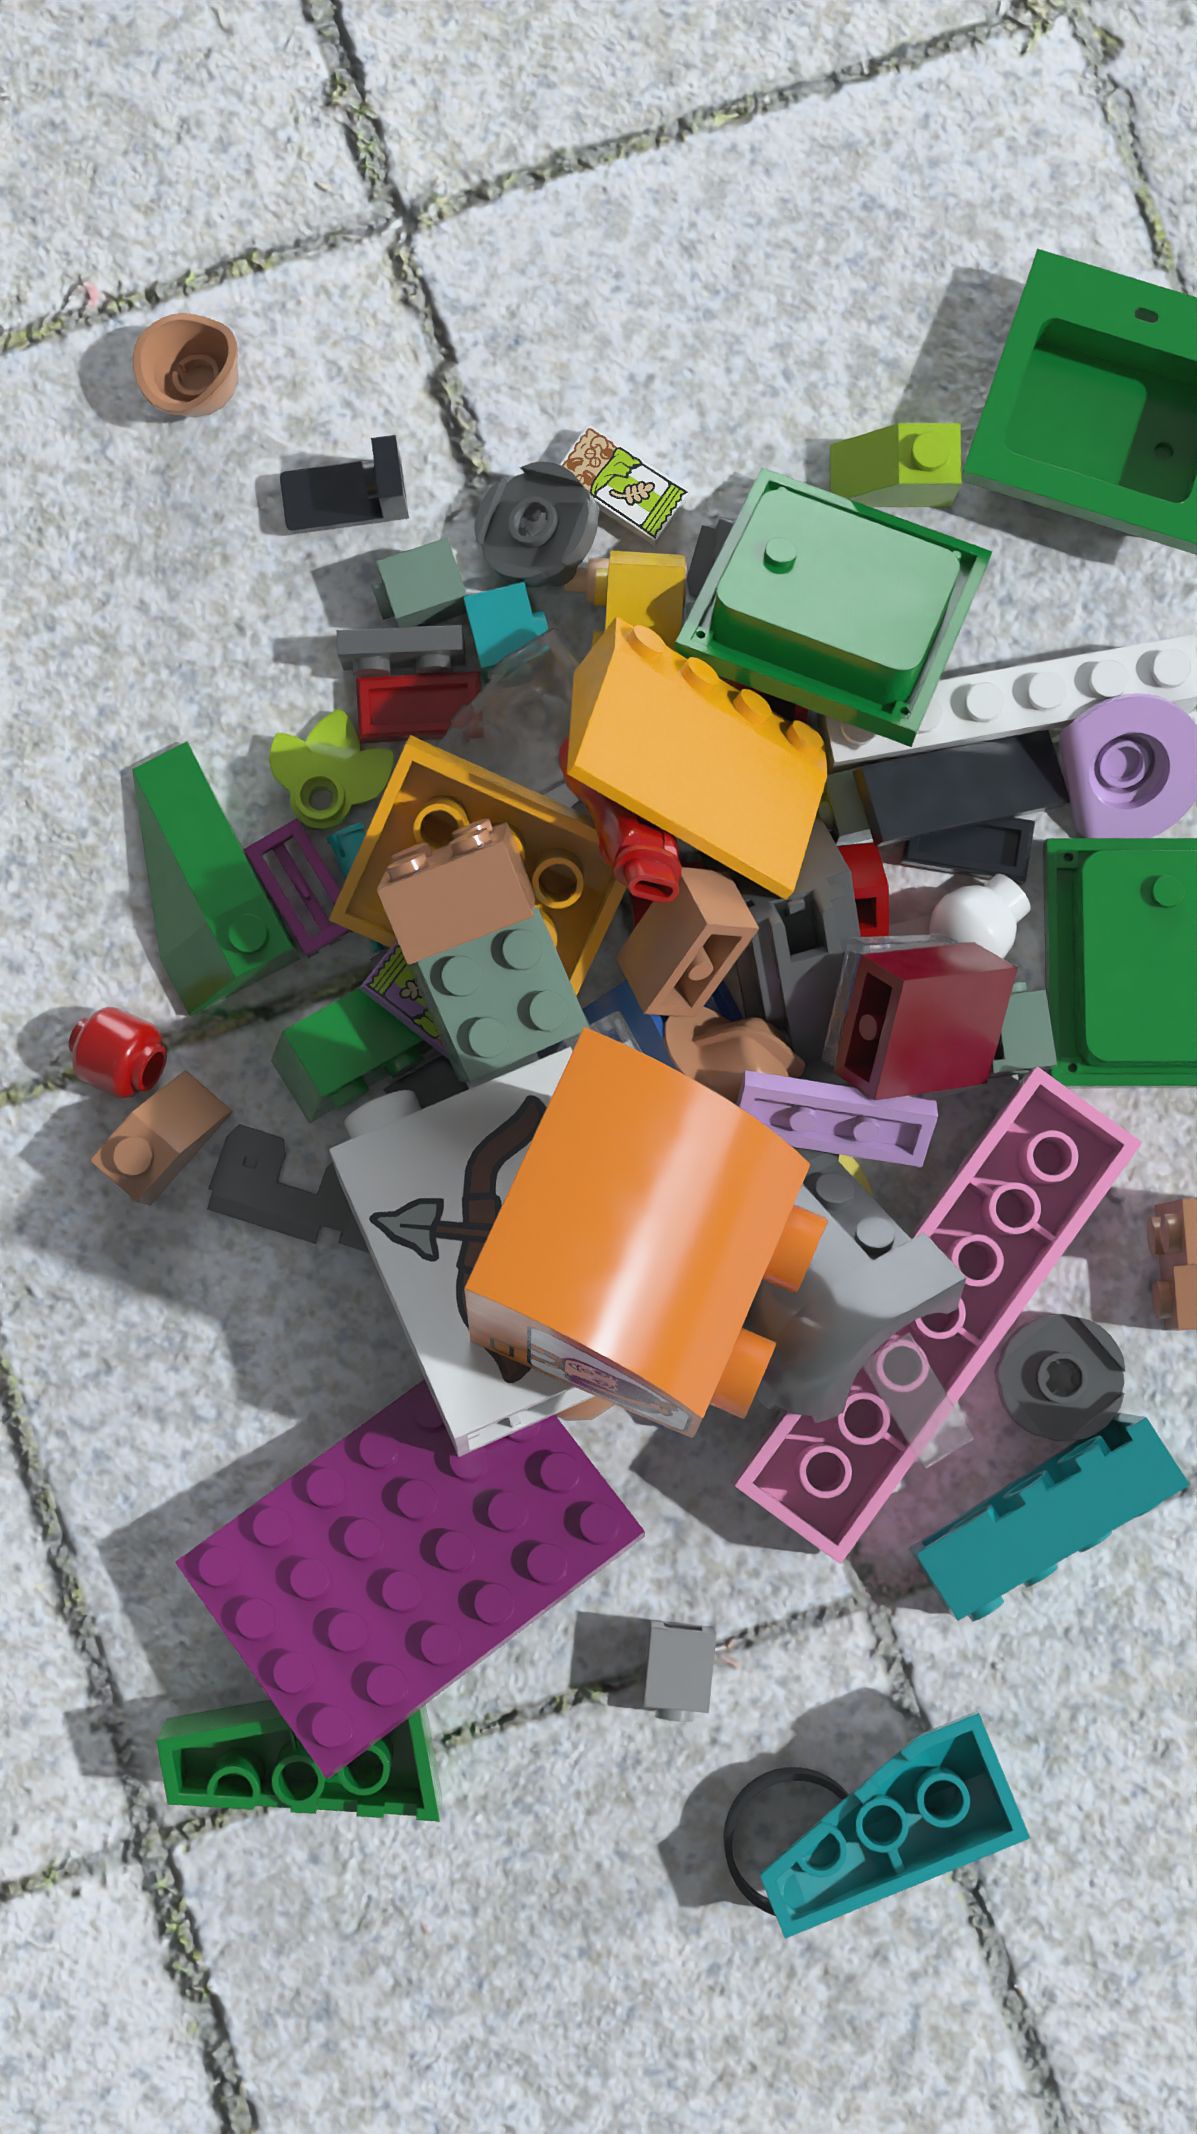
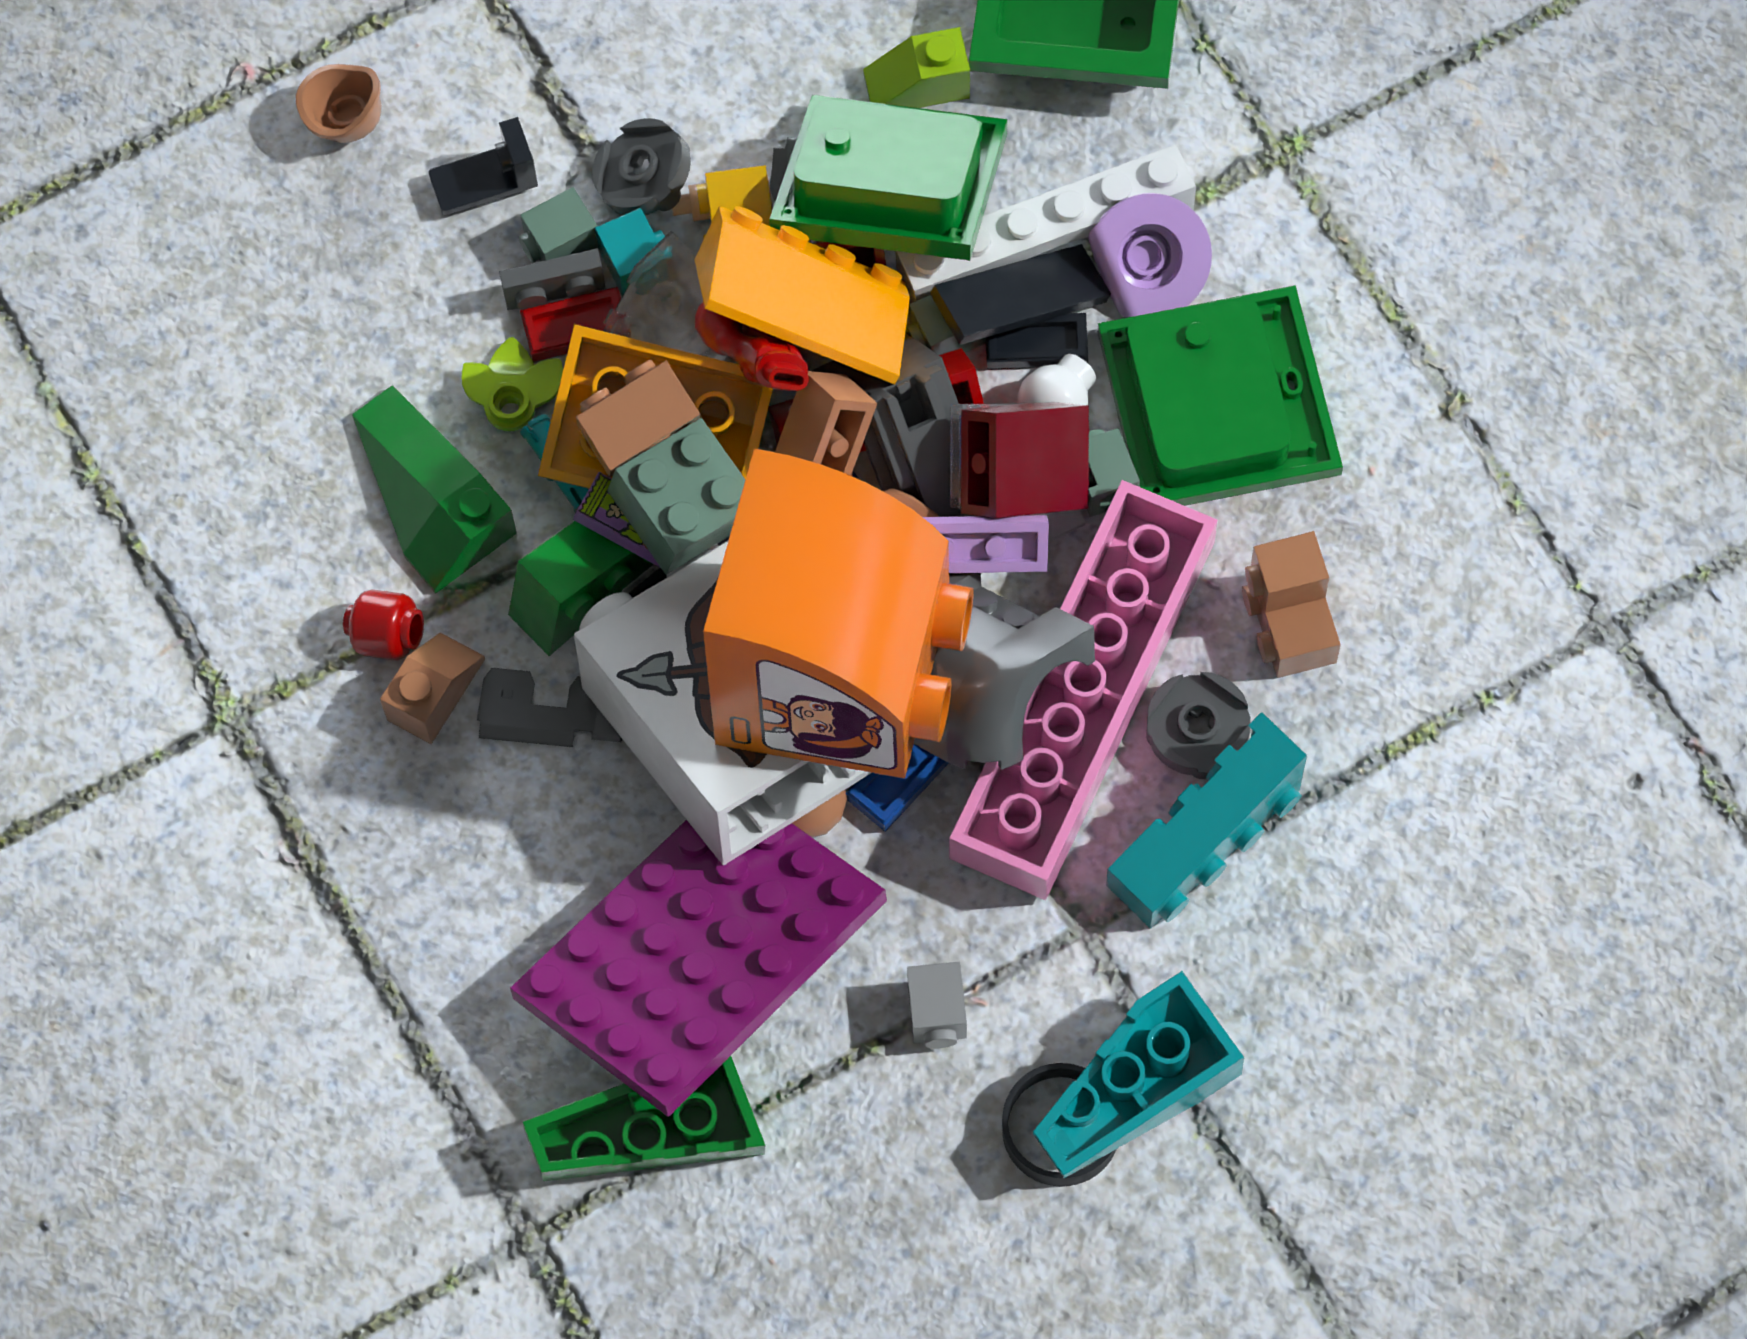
camera: 10 degrees left, 15 degrees down
(275, 841) = (535, 507): magenta tile -> none
(625, 485) = (708, 129): tile -> none
(916, 1400) = (1079, 743): clear piece -> none

